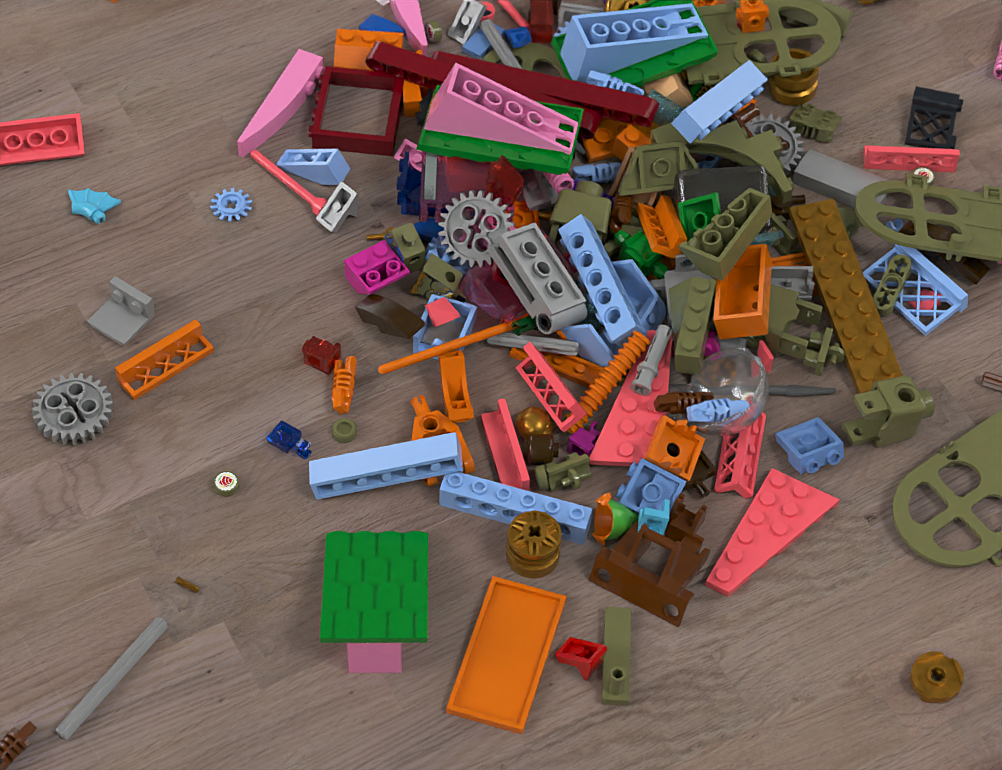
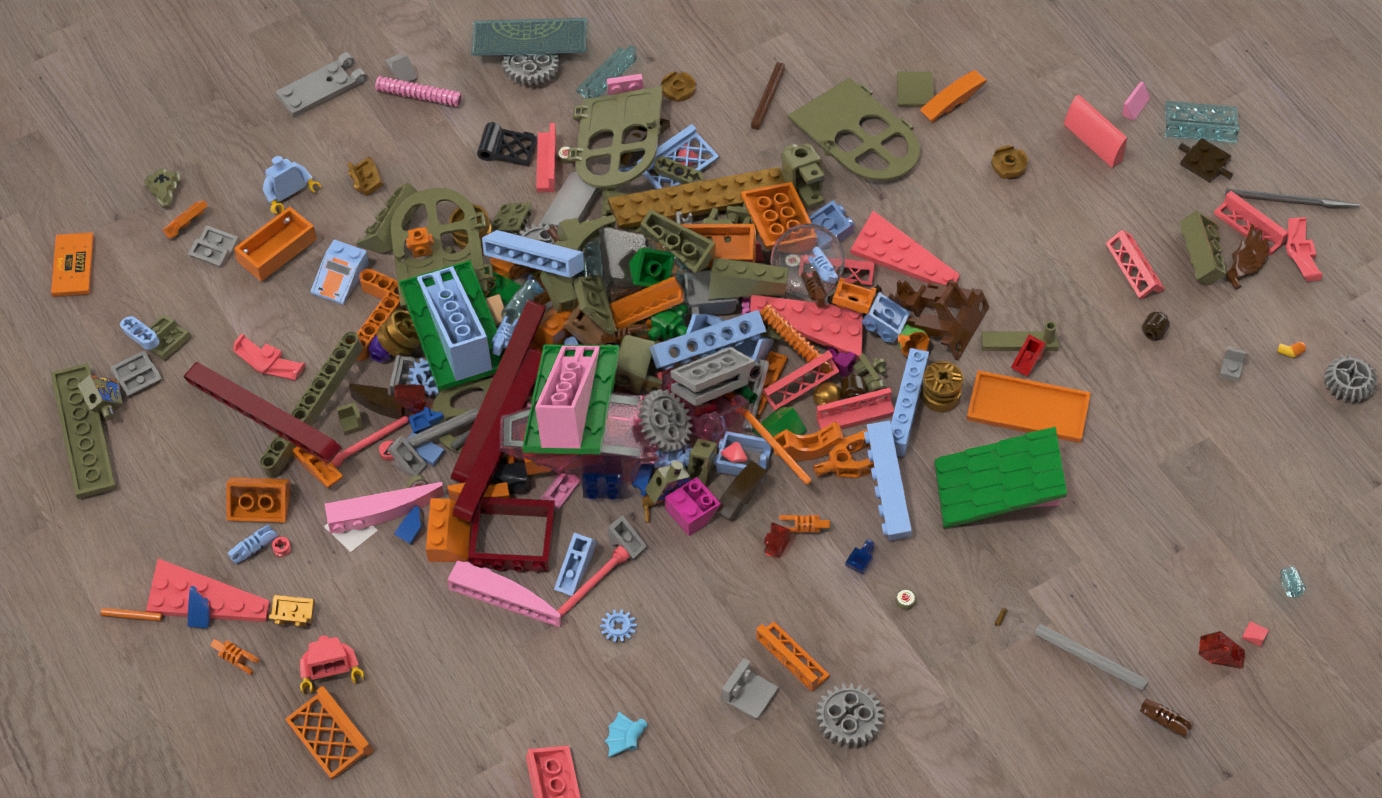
camera: 90 degrees left, 0 degrees up
(344, 430) = (845, 522): olive tile -> none
(488, 372) = (782, 419): none -> green slope
(504, 181) = (631, 393): clear red slope -> none
(648, 368) = (794, 306): light grey pin -> none
(655, 518) = (914, 309): medium azure panel -> none
(811, 381) = (774, 210): none -> orange slope

